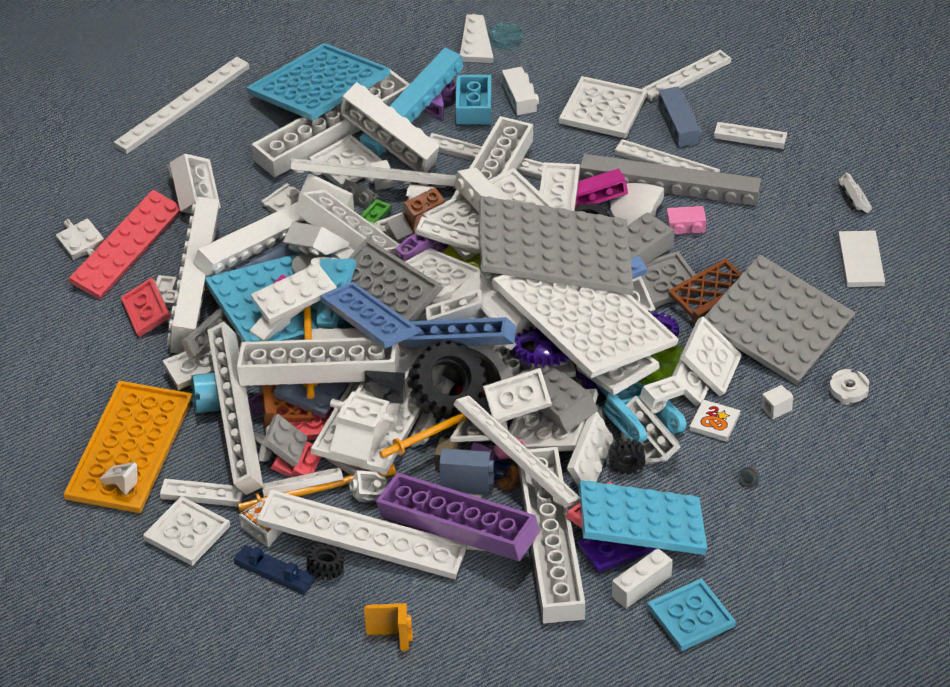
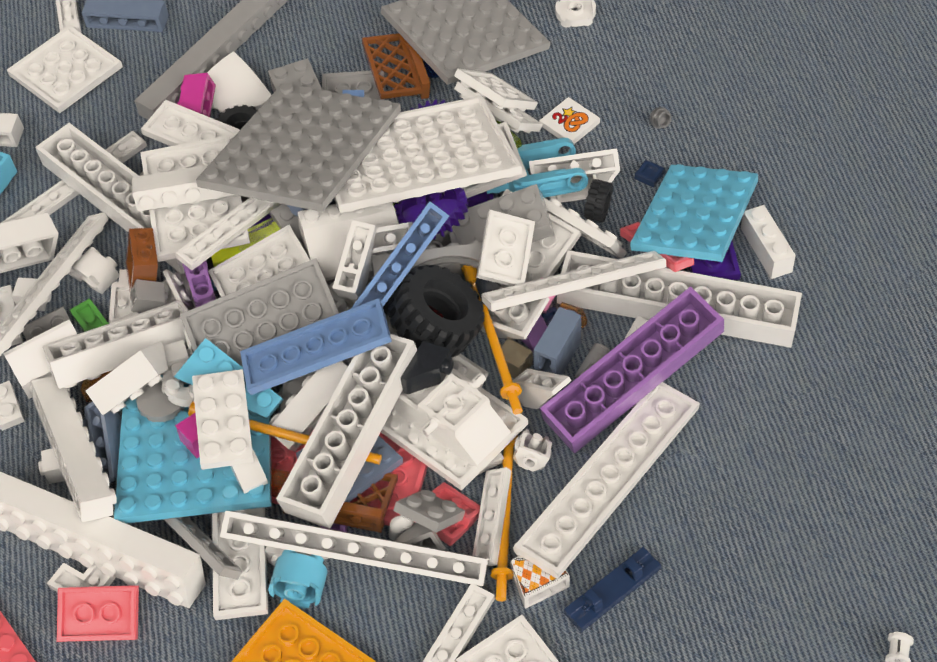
camera: 65 degrees left, 10 degrees up
(316, 561) = (632, 538): black tyre -> none
(389, 620) = (765, 473): light orange bracket -> none
(417, 466) = (539, 387): none -> white slope
(645, 154) = (171, 50): white tile -> none
(658, 393) = (537, 141): white plate -> none
(684, 486) = (649, 173): none -> dark blue tile
(686, 219) = (280, 51): bright pink brick -> none
(691, 614) = (826, 219): medium azure plate -> none
(777, 402) = (572, 65): white brick -> none

